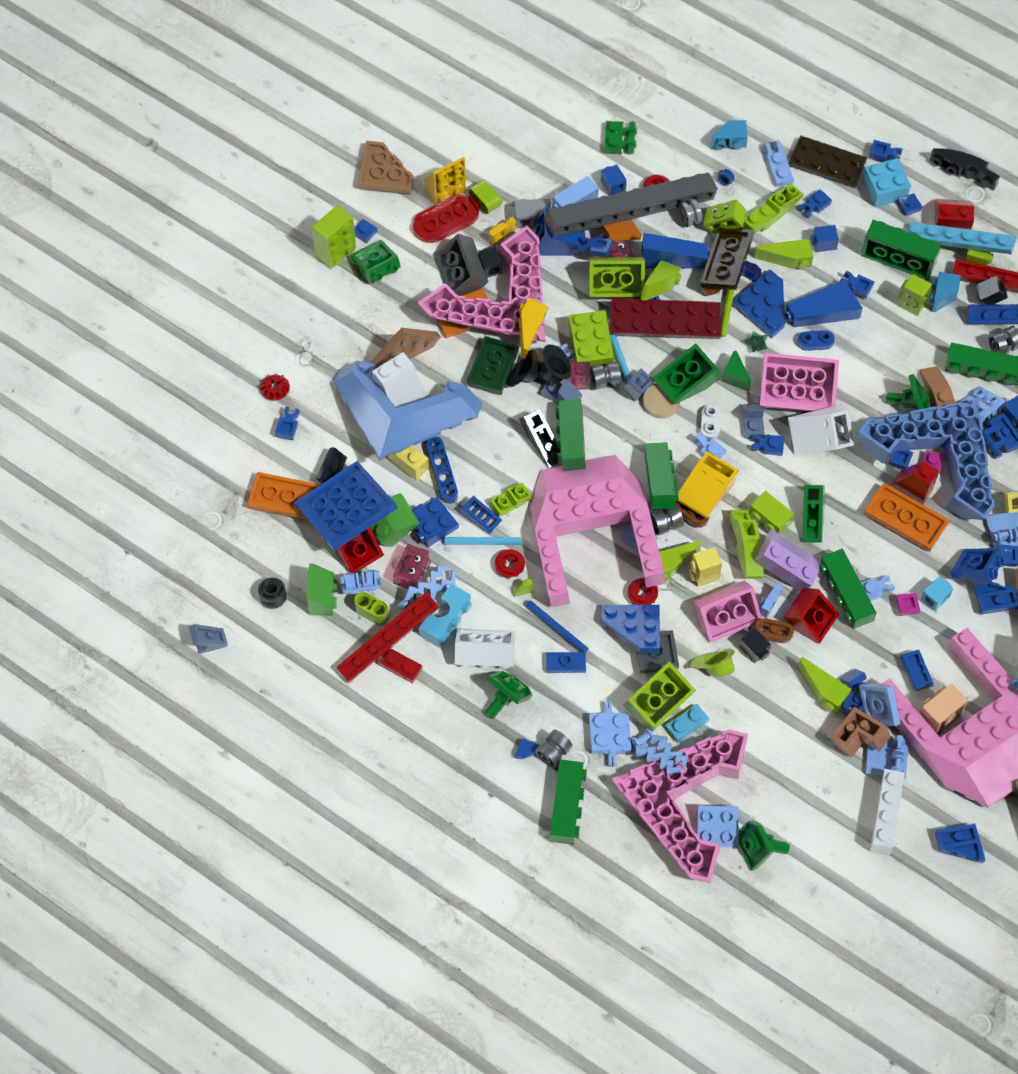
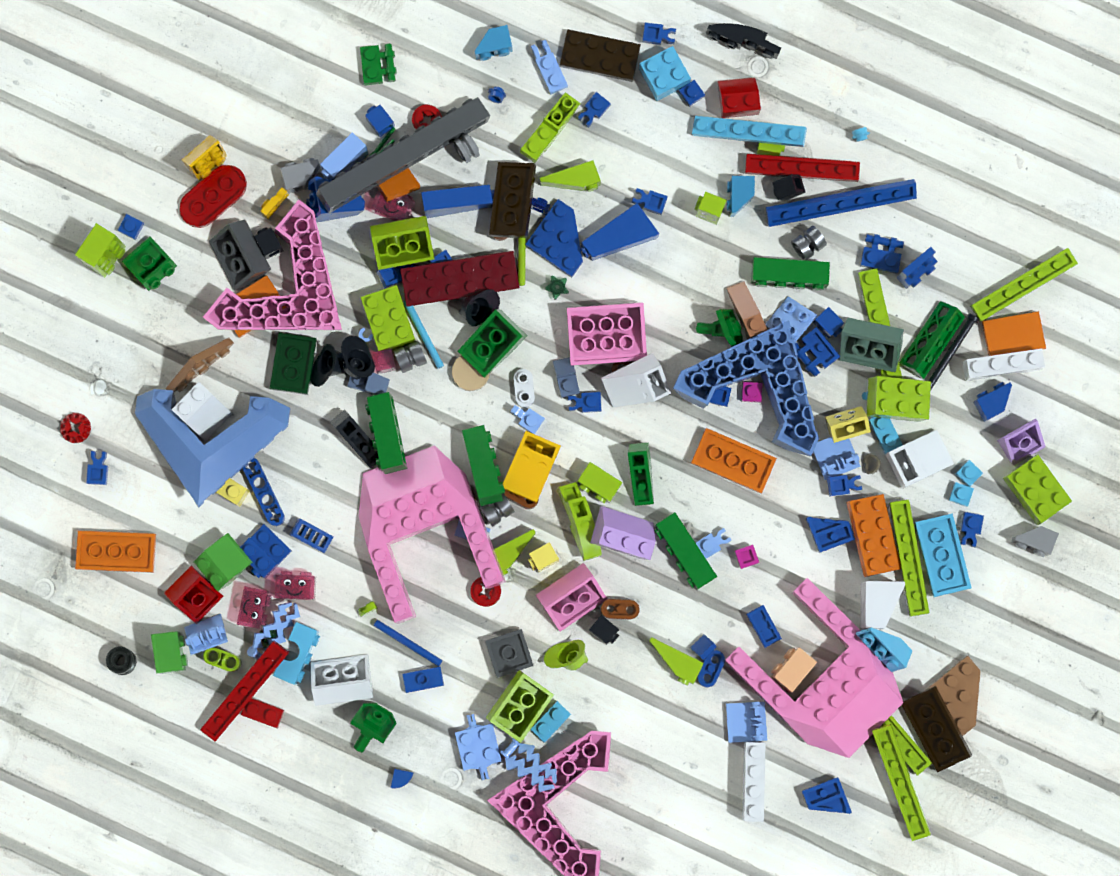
camera: 15 degrees left, 20 degrees up
(207, 638) = (67, 721): sand blue slope -> none
(331, 465) = (151, 512): black plate -> none
(345, 505) = (174, 560): blue plate -> none
(383, 170) = (136, 151): medium nougat plate -> none
(456, 555) = (295, 586): none -> clear pink brick
(482, 540) = (319, 562): medium azure bar -> none
(485, 196) = (249, 164): lime beam -> none
(510, 500) = (337, 513): lime slope -> none
(512, 556) = (340, 583): red gear -> none
(529, 322) = (322, 316): yellow slope -> none
(554, 747) = (427, 775): flat silver wheel -> none
(566, 802) = (448, 827): green brick -> none
(597, 247) = (376, 212): blue plate -> none
(599, 304) = (392, 275): none -> blue plate
(634, 625) = (484, 631): plate -> none
(638, 384) = (445, 360): sand blue slope -> none
(661, 280) = (449, 237): lime slope -> none
(678, 342) = (479, 307): none -> black piece
(718, 824) = (595, 825): light blue hinge -> none
(725, 215) = (502, 148): lime brick -> none
(735, 373) = (540, 328): green slope -> none
(758, 845) = (637, 840): green piece -> none
(768, 603) = (609, 582): light blue plate -> none
(811, 614) = (654, 586): red slope -> none
(816, 340) = (617, 273): blue plate -> none
(824, 238) = (609, 152): blue brick -> none
(860, 728) = (717, 703): nougat brick -> none
(880, 703) = (732, 677): light blue plate -> none
(900, 249) = (690, 155): green brick -> none
(916, 481) = (736, 423): red slope -> none
(937, 593) = (774, 540): medium azure brick -> none
(978, 565) = (810, 506): blue plate -> none

